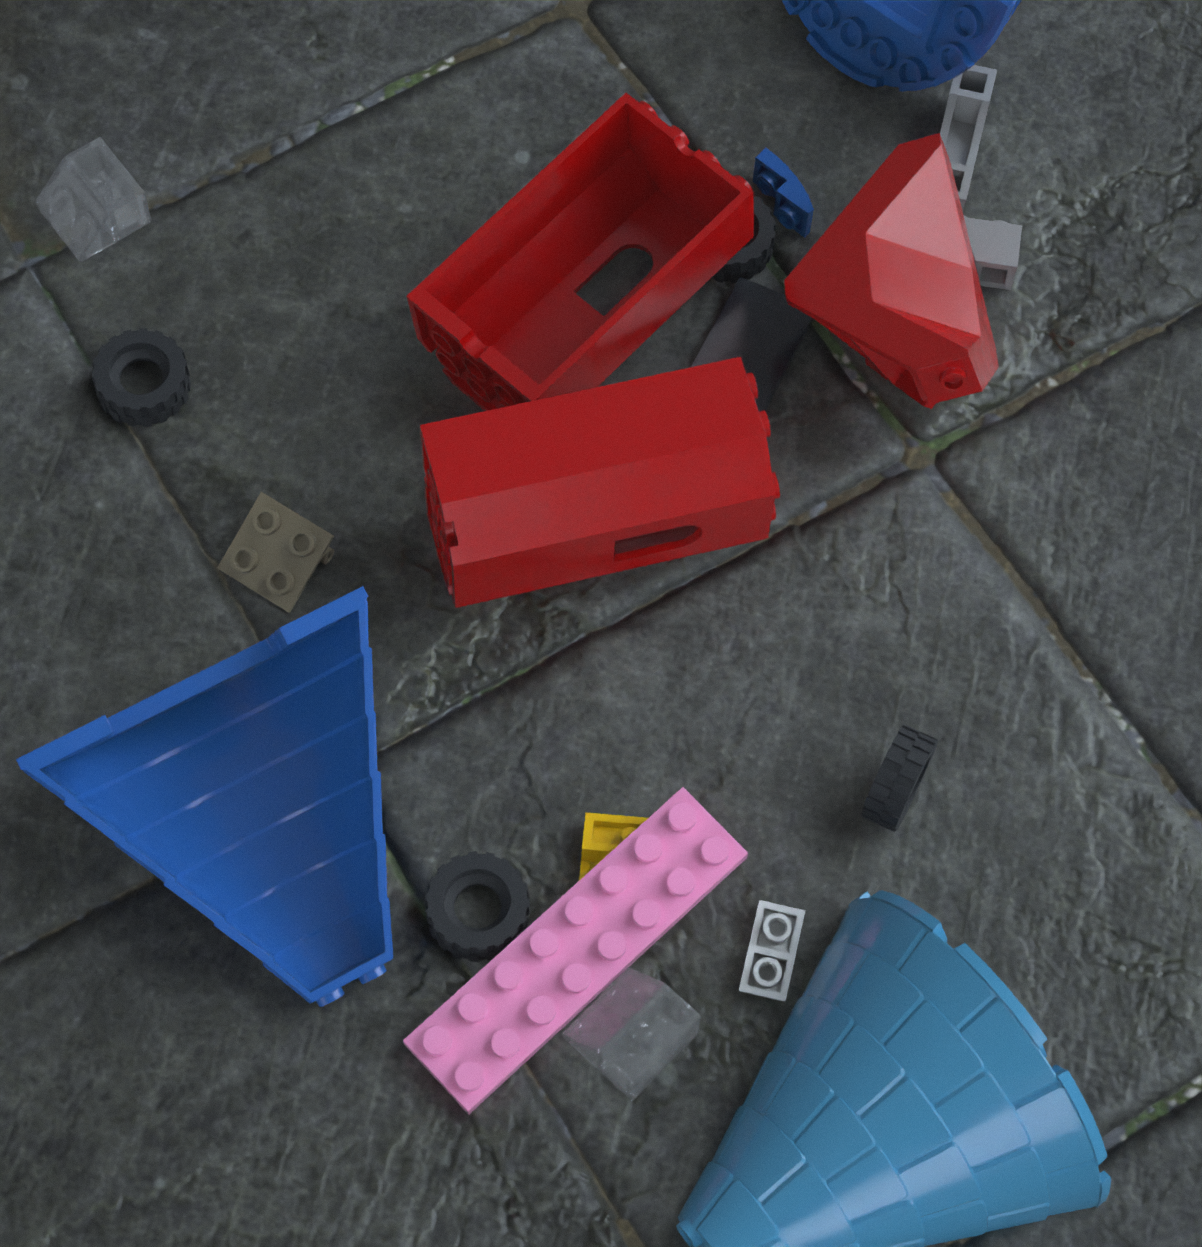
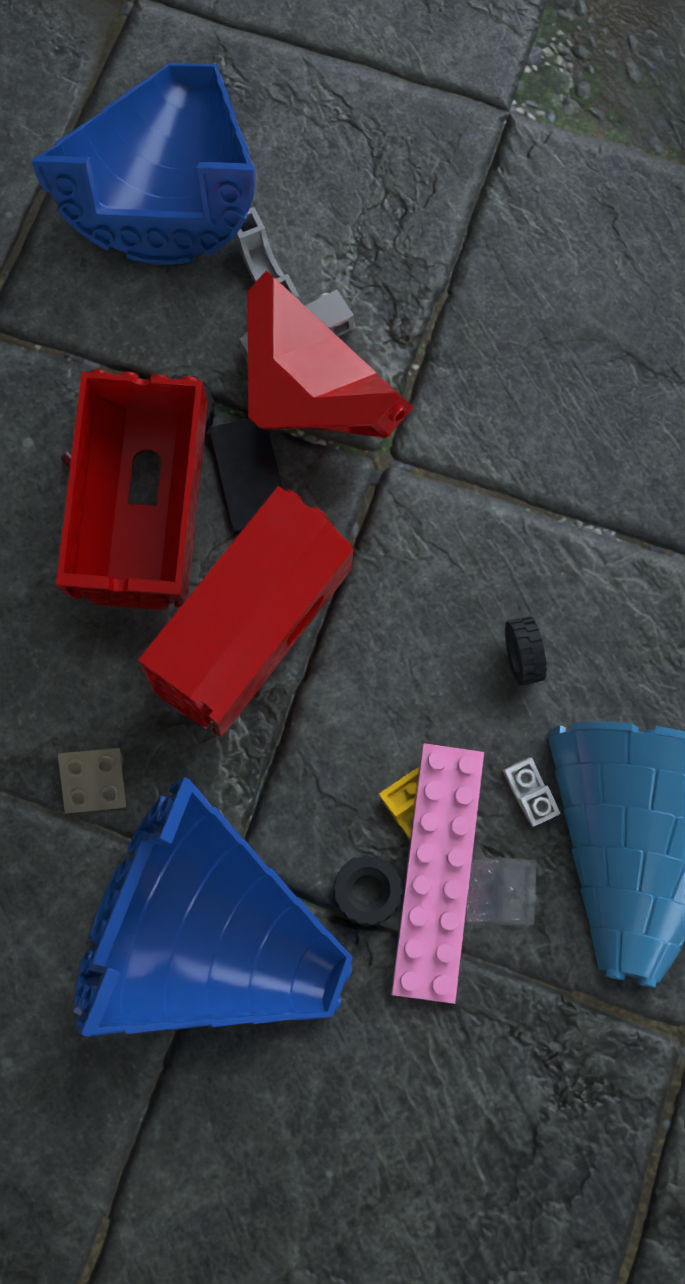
camera: 40 degrees left, 10 degrees up
(791, 199) = (203, 363): blue slope -> none

